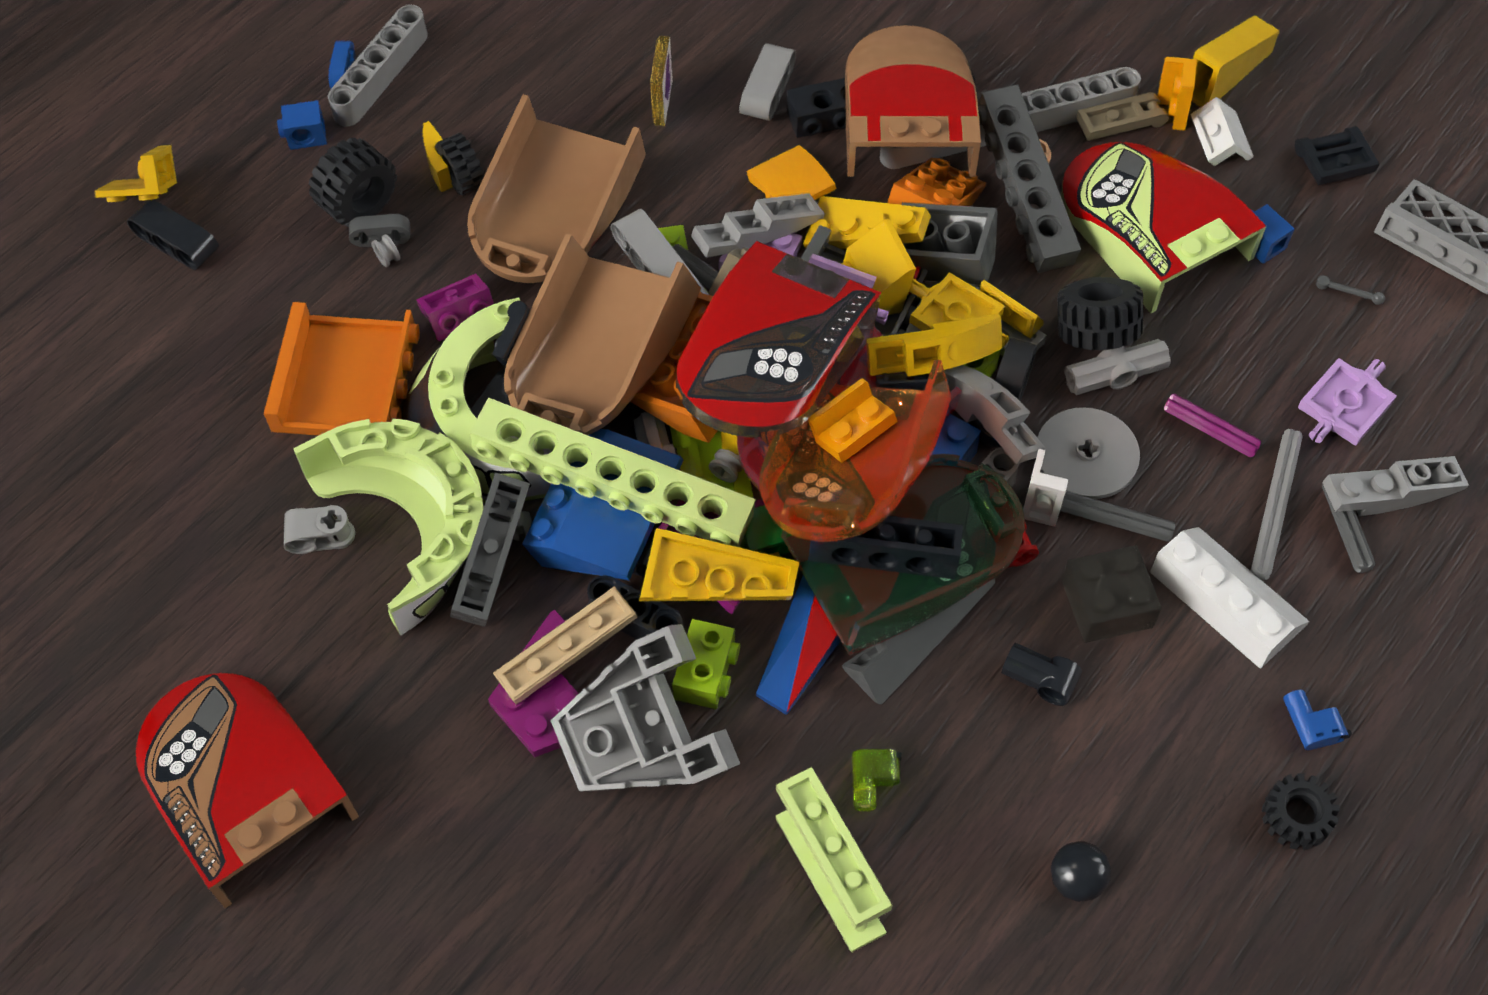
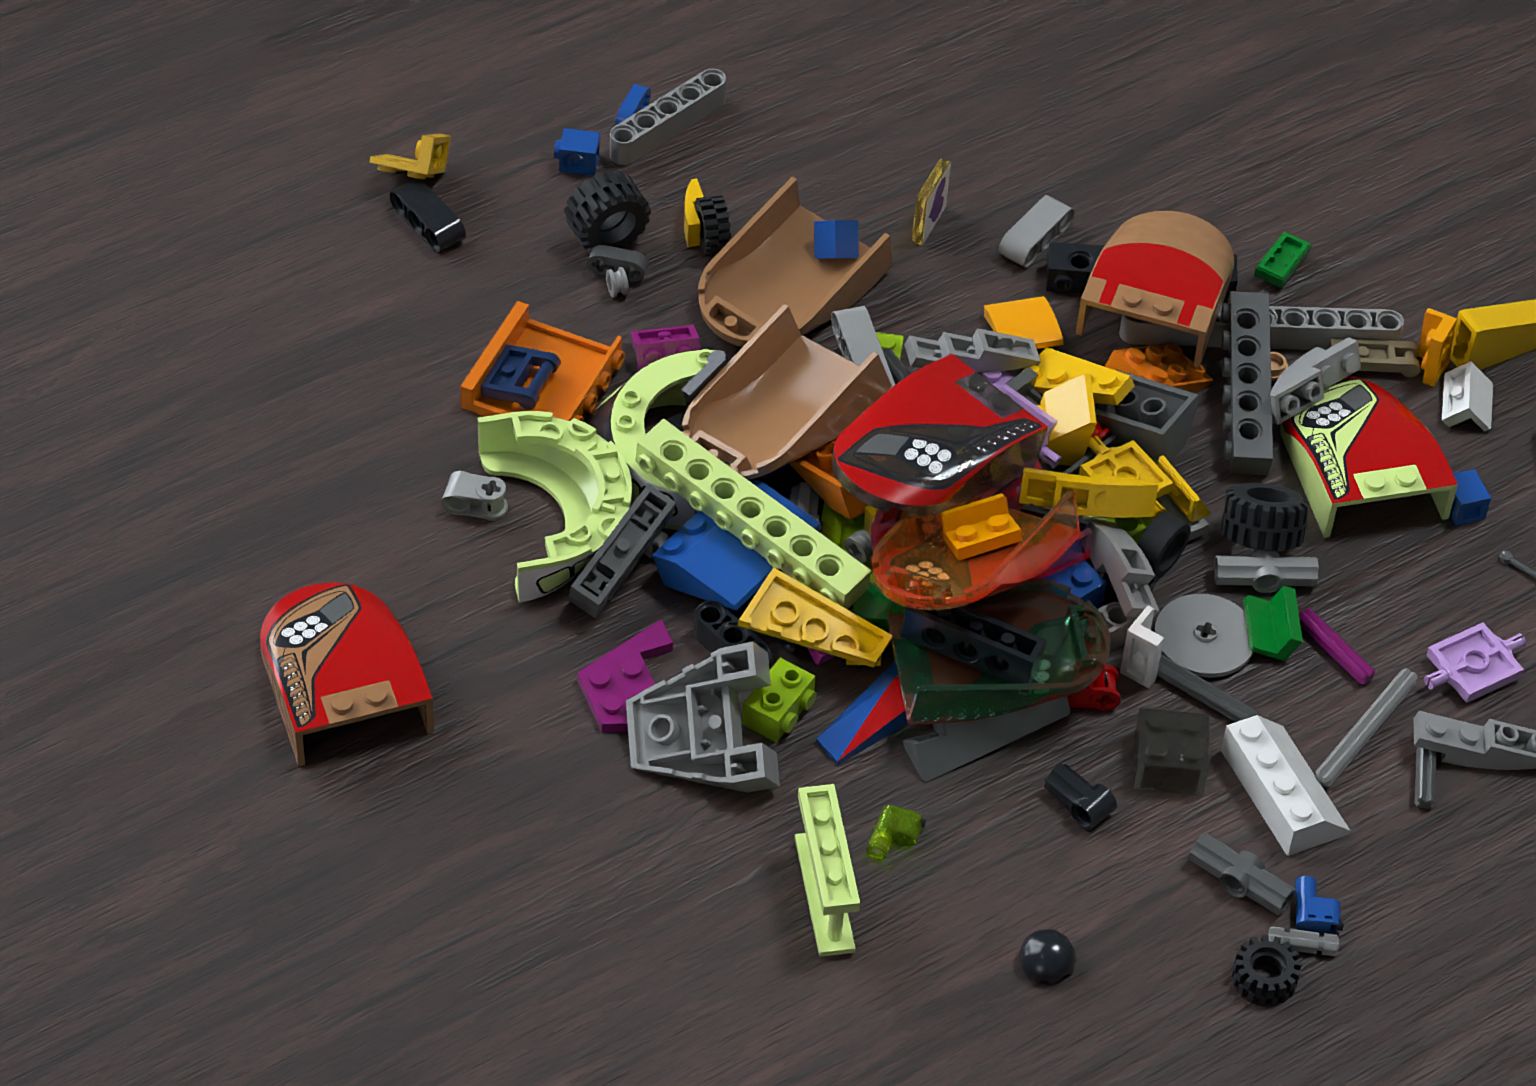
camera: 15 degrees right, 10 degrees down
(311, 378) = (511, 371): none -> dark blue plate
(565, 645) = (660, 645): tan tile -> none
(584, 145) = (836, 239): none -> blue panel
(1001, 45) = (1282, 259): none -> green plate
(1079, 156) = (1310, 375): none -> light grey slope
(1149, 421) = (1273, 624): none -> green panel
(1232, 708) = (1242, 874): none -> dark grey piece
(1319, 762) = (1306, 940): none -> light grey axle

